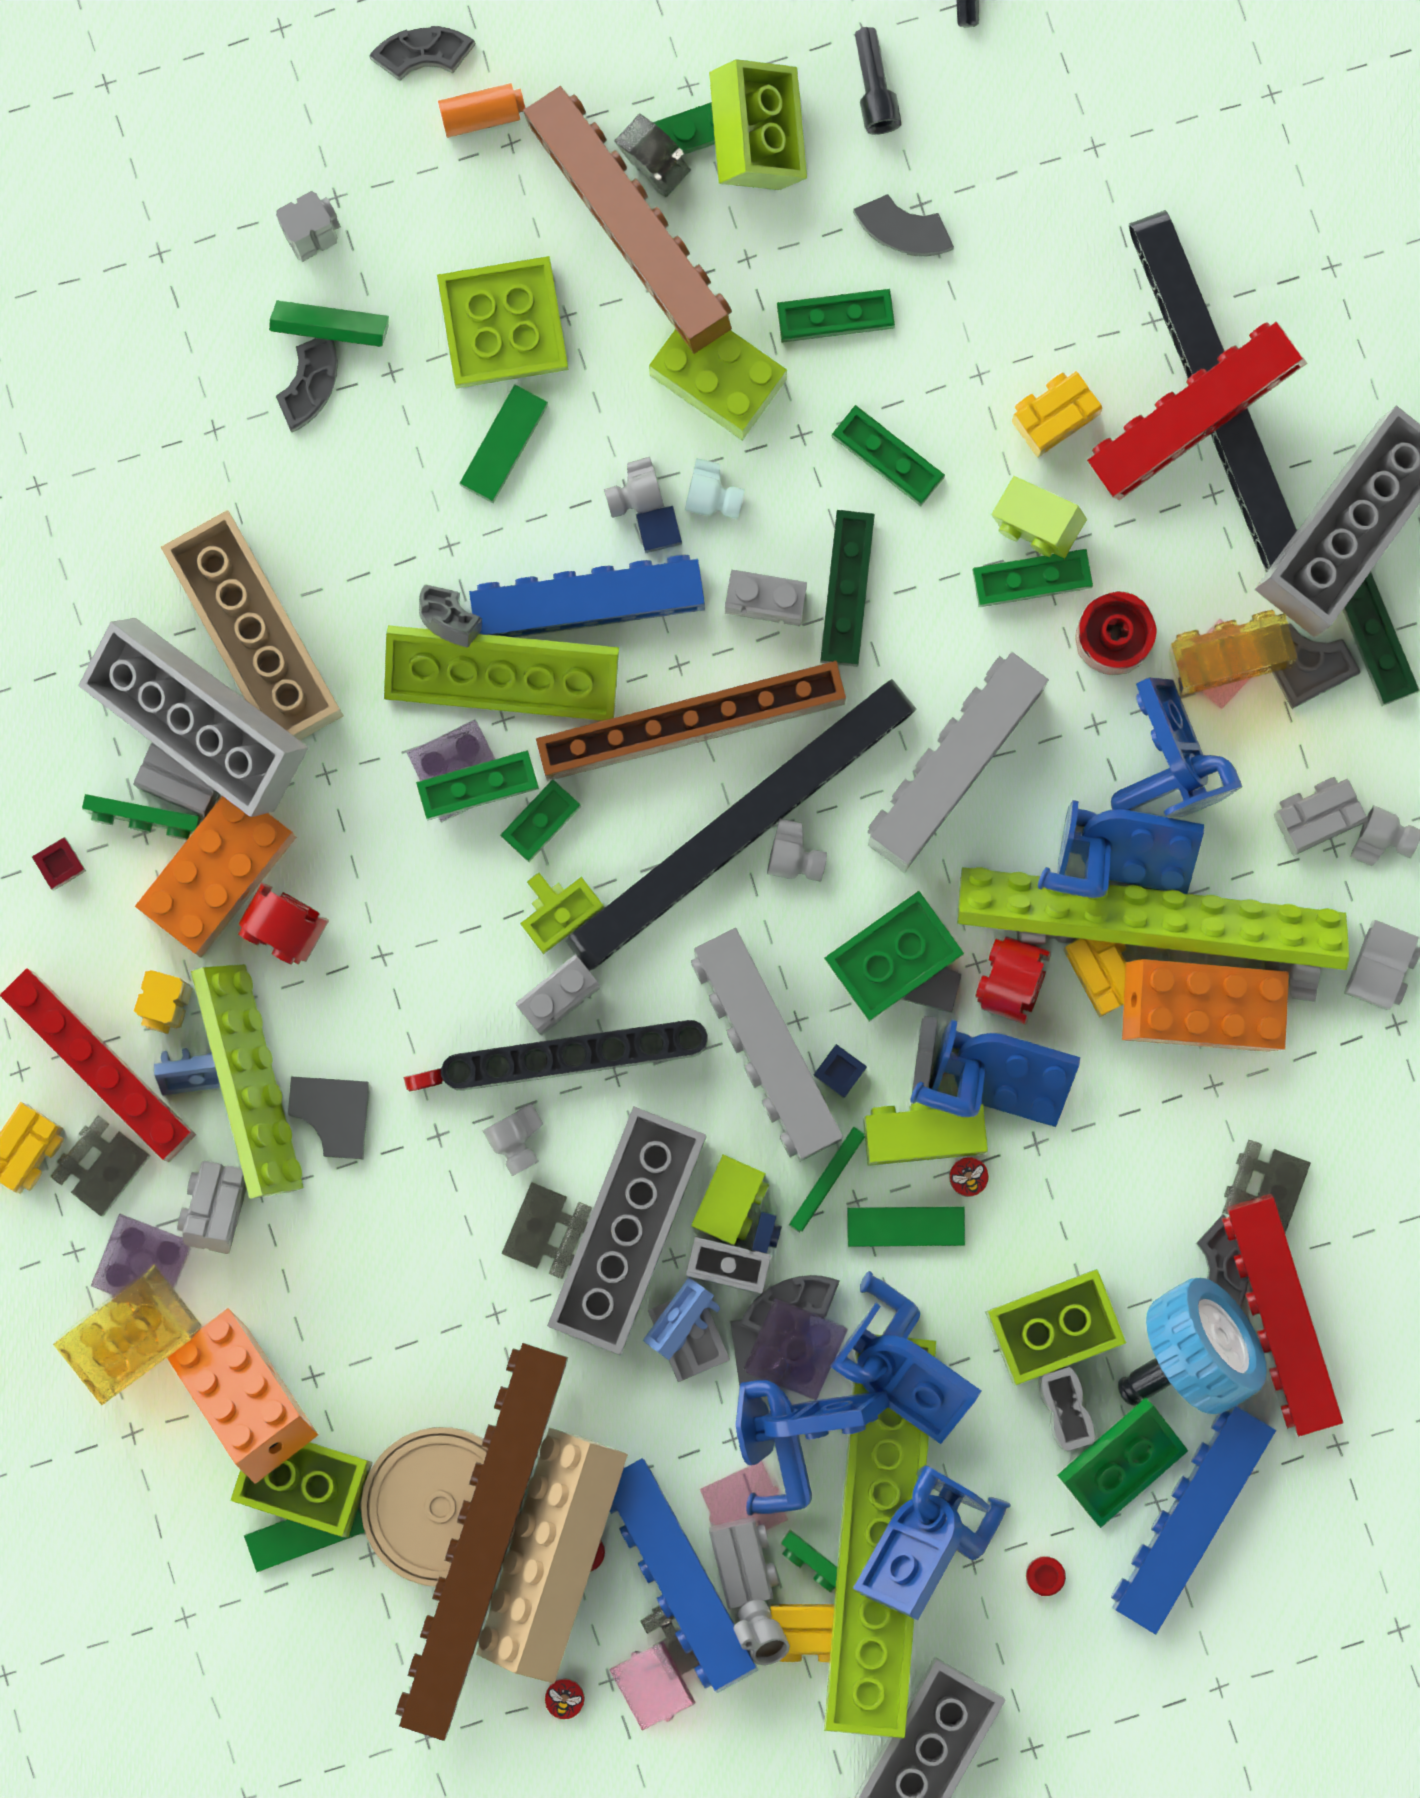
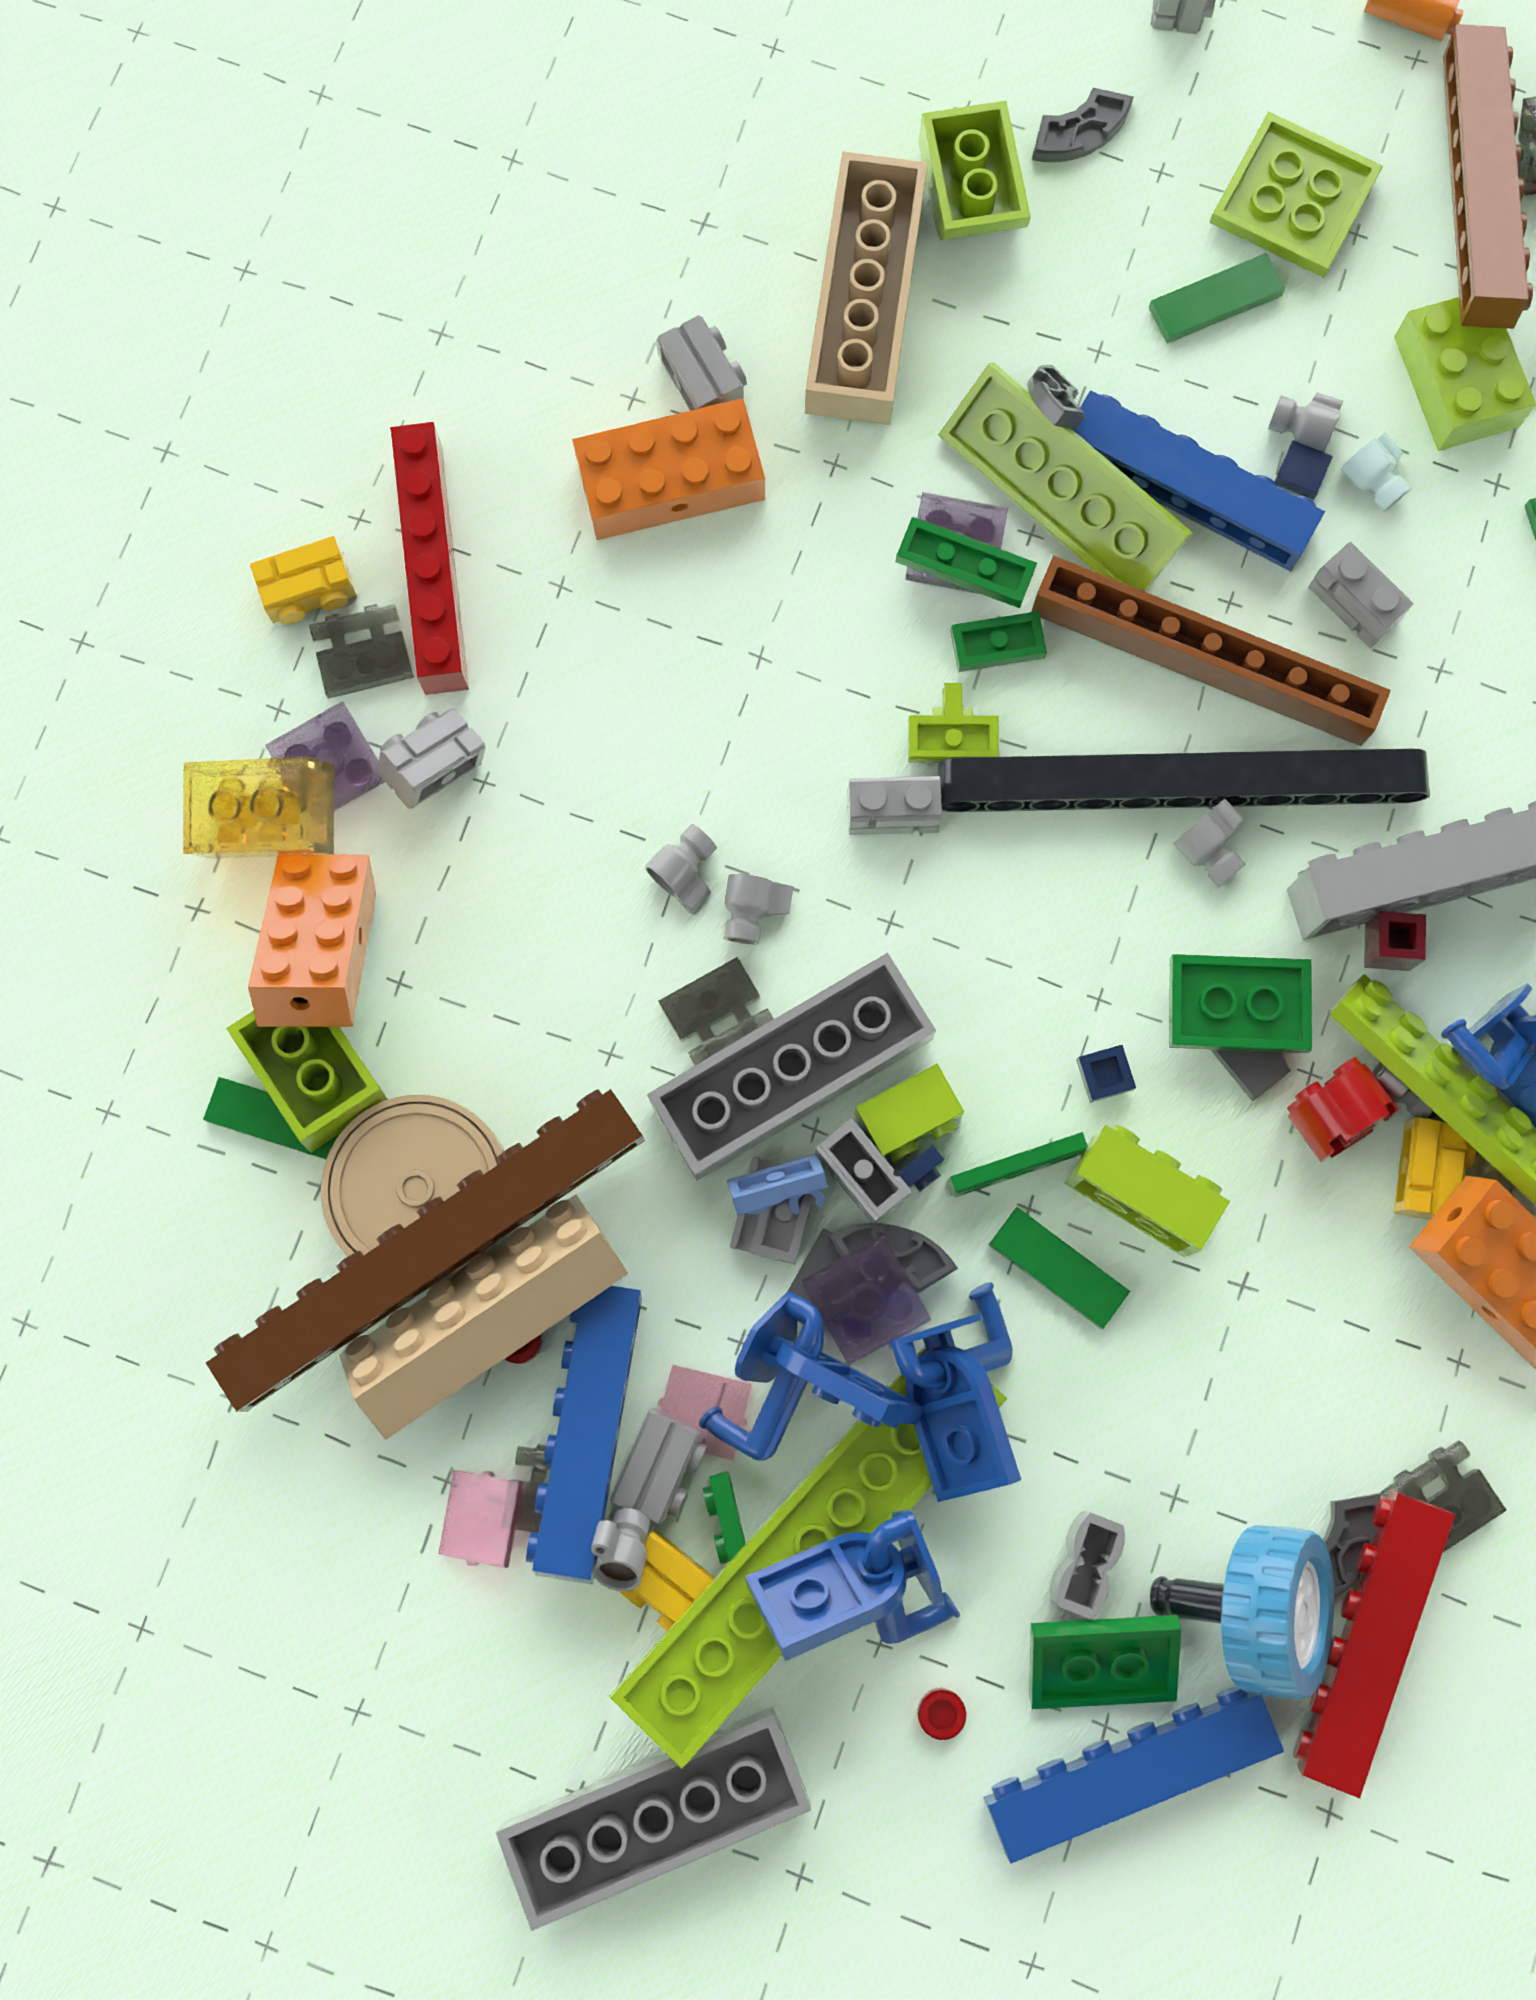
camera: 35 degrees right, 5 degrees down
(58, 863) = (536, 364): dark red plate -> none
(140, 817) = (638, 372): green plate -> none
(162, 1001) = (530, 540): yellow brick -> none
(186, 1074) = (510, 630): medium blue plate -> none
(193, 716) = (756, 312): light grey brick -> none
(247, 1080) = (549, 667): lime plate -> none
(263, 487) = (973, 171): none -> lime brick
(283, 924) = (690, 555): red brick -> none
(329, 323) = (1138, 87): green tile -> none
(334, 1110) = (608, 760): dark grey tile -> none
(423, 1080) = (711, 789): red tile -> none
(442, 1152) = (676, 867): none -> light grey piece
(556, 1048) = (857, 852): black beam -> none
(564, 1698) = (389, 1464): tile -> none
(767, 1044) = (1057, 995): light grey brick -> none
(847, 587) = (1445, 641): dark green plate -> none
(925, 1051) = (1200, 1118): dark grey tile -> none
(965, 833) = (1395, 941): none -> dark red brick
(968, 1177) = (1155, 1267): tile -> none
(1000, 1075) = (1270, 1191): blue plate -> none
(1055, 1327) = (1136, 1475): lime brick -> none

